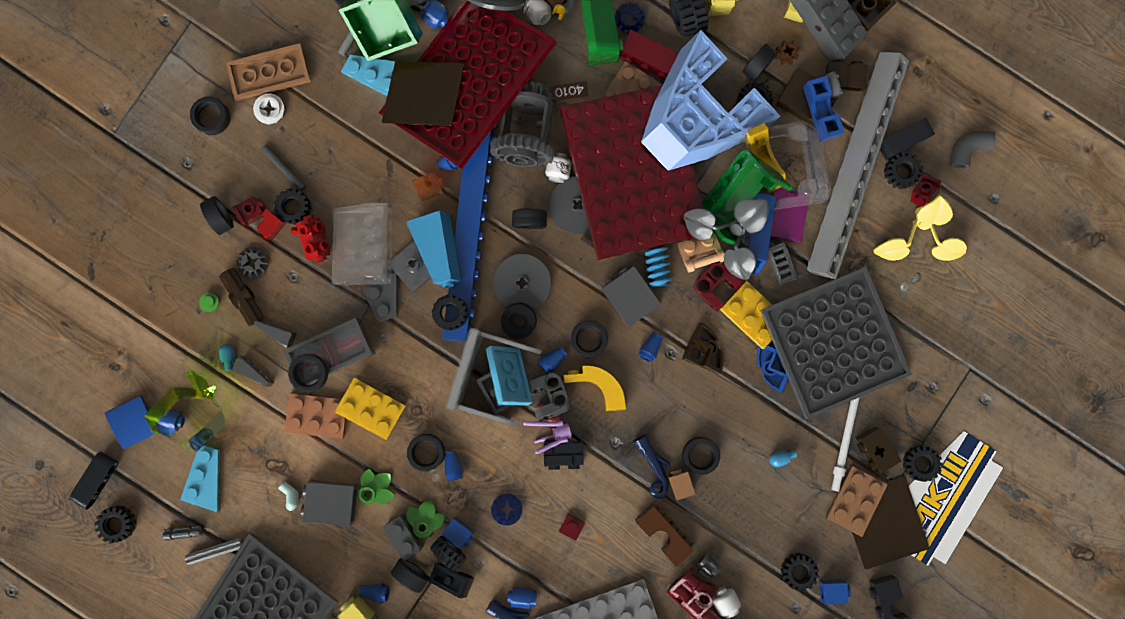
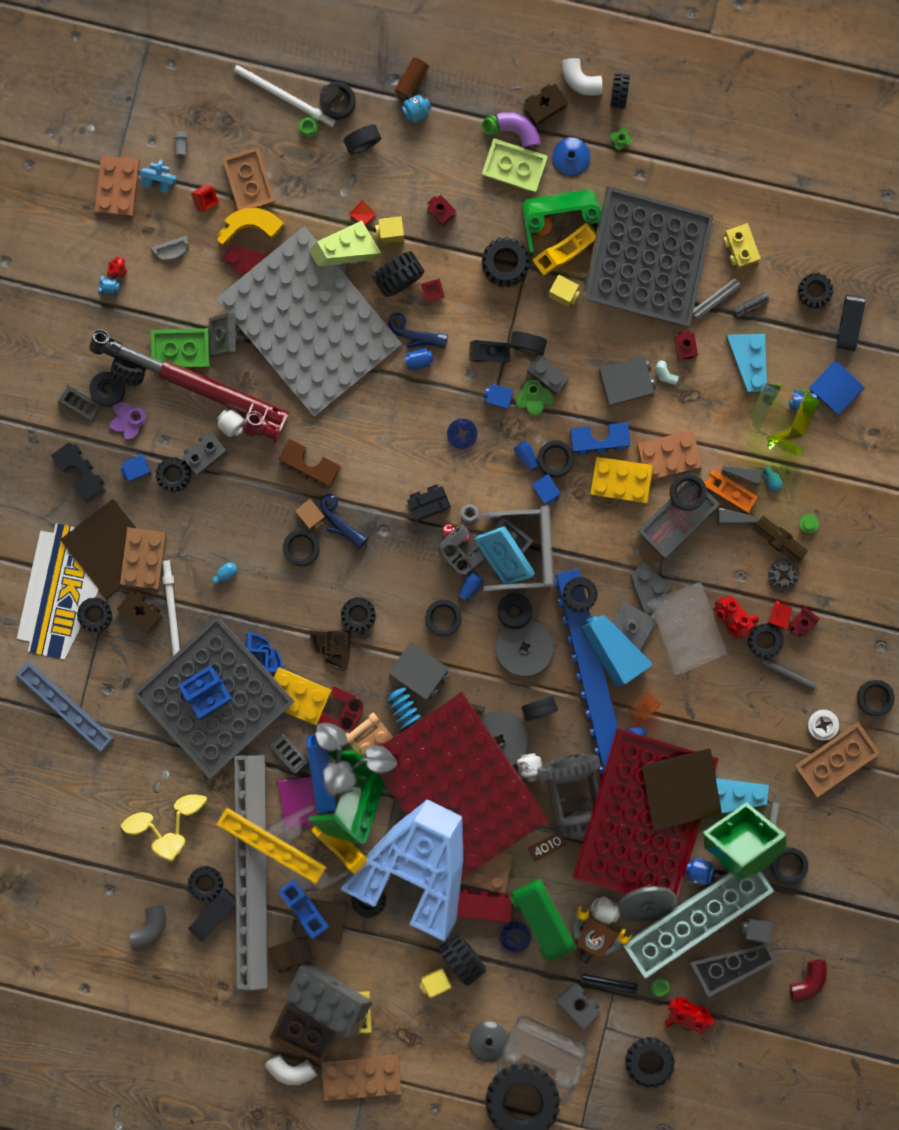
camera: 160 degrees right, 0 degrees up
(168, 594) = (741, 246): none -> light yellow brick
(216, 215) = (830, 606): black tyre -> none
(259, 516) = (685, 345): none -> dark red brick
(269, 359) = (731, 491): none -> orange plate
(375, 592) = (552, 316): blue cone -> none
(378, 487) = (587, 411): bright green plate -> none
(392, 458) = (583, 441): none -> blue arch
(445, 425) = (546, 490): none -> blue brick
(448, 553) = (501, 375): black tyre -> none
(527, 436) = (465, 508): none -> light grey plate
(560, 434) = (437, 521): lavender plant -> none
(571, 527) = (396, 439): dark red plate -> none
(608, 384) = (412, 583): yellow arch -> none
(650, 348) = (383, 629): blue cone -> none
(669, 383) = (346, 614): none -> black tyre
(708, 565) = (258, 450): dark grey gear -> none
(760, 62) = (377, 935): black tyre -> none
(763, 581) = (204, 453): none -> dark grey brick
(785, 57) = (354, 962): reddish brown gear -> none
(833, 178) = (271, 846): none -> yellow tile
(834, 84) = (301, 937): light grey pin -> none
(843, 349) = (205, 692): none -> blue slope
(925, 190) = (179, 870): dark red brick -> none
(979, 386) = (64, 706): none -> sand blue tile

